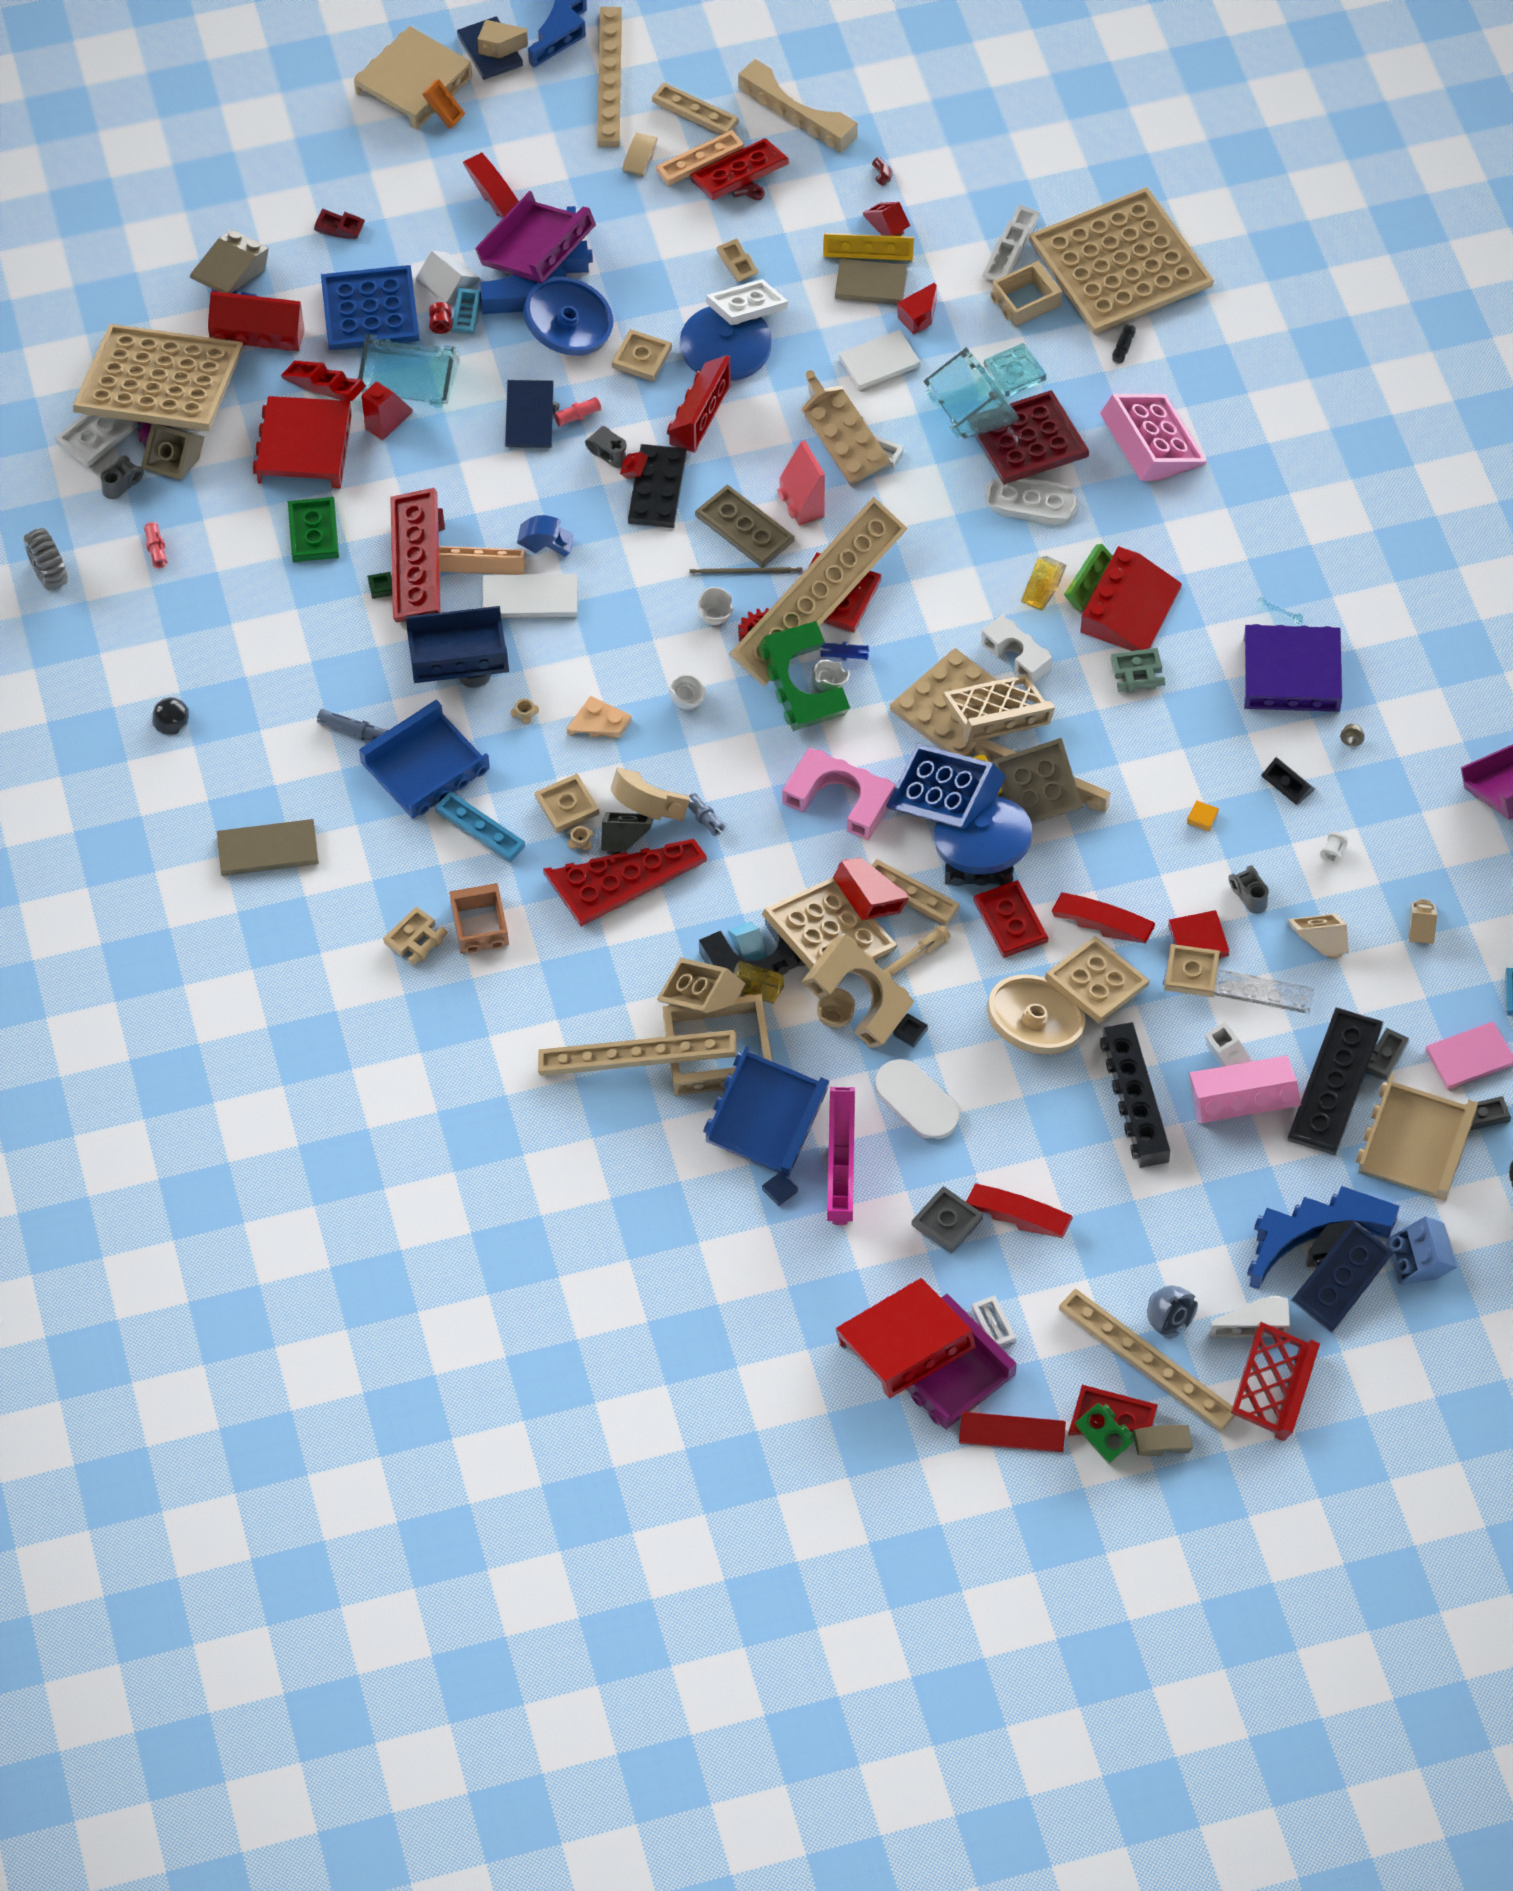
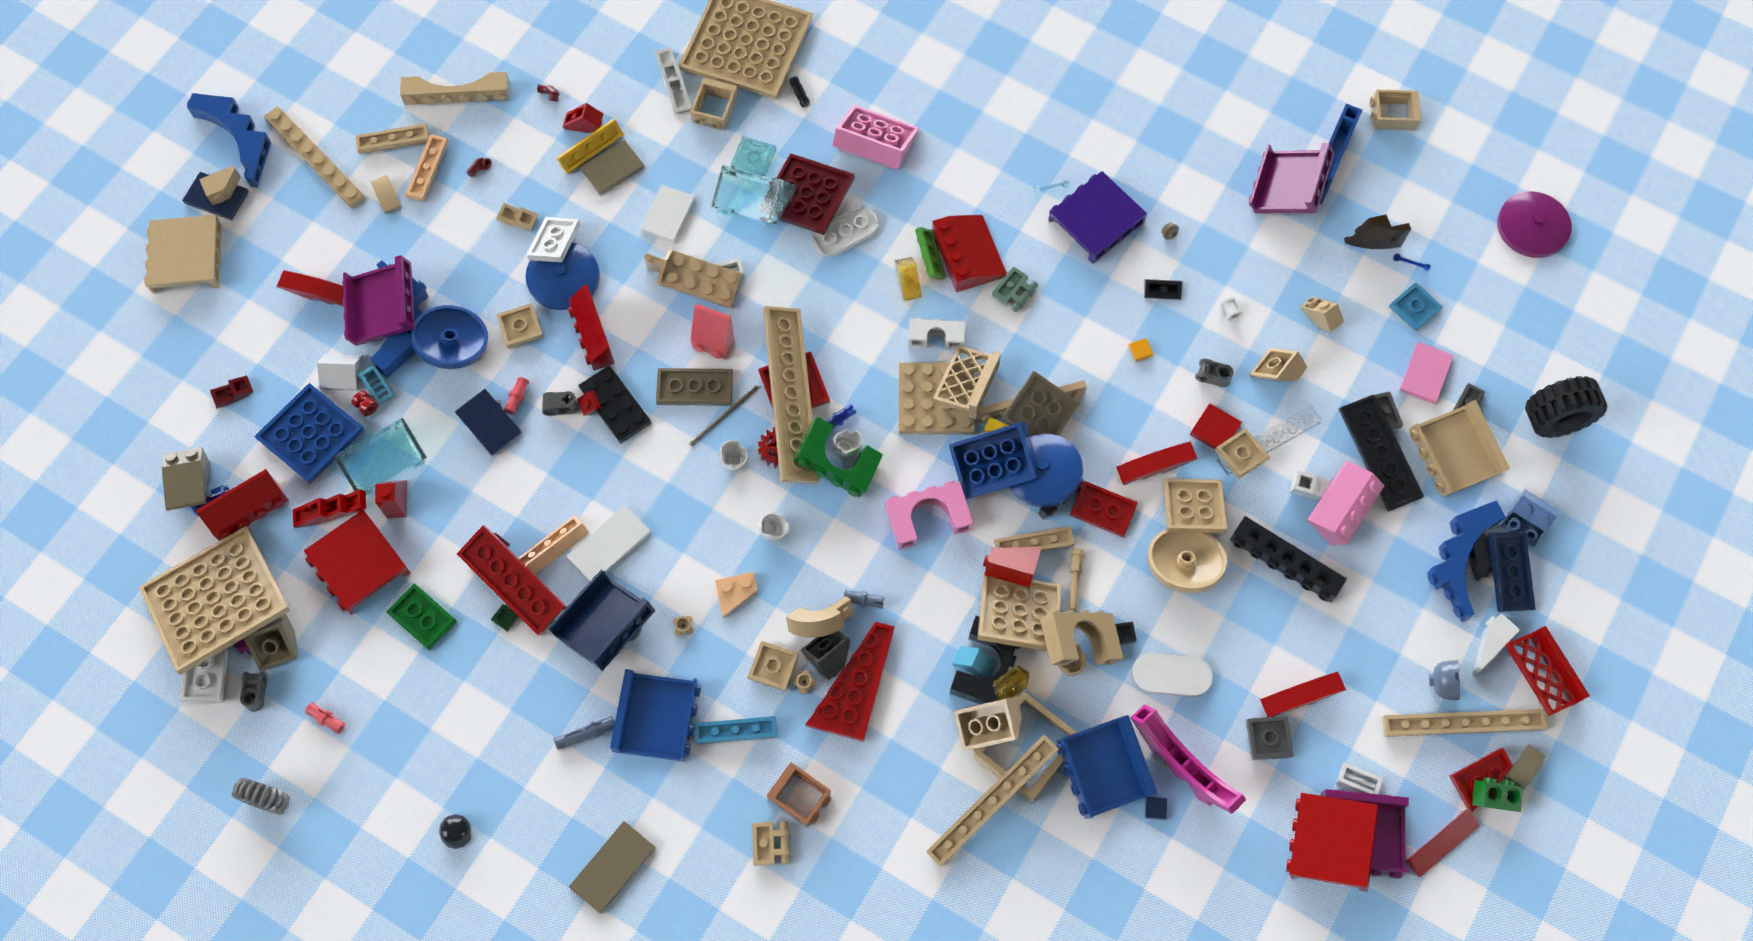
camera: 45 degrees left, 10 degrees up
(443, 103) = (224, 256): orange plate -> none
(545, 531) = (579, 495): blue brick -> none
(739, 169) = (459, 156): red tile -> none
(918, 309) = (660, 163): red slope -> none

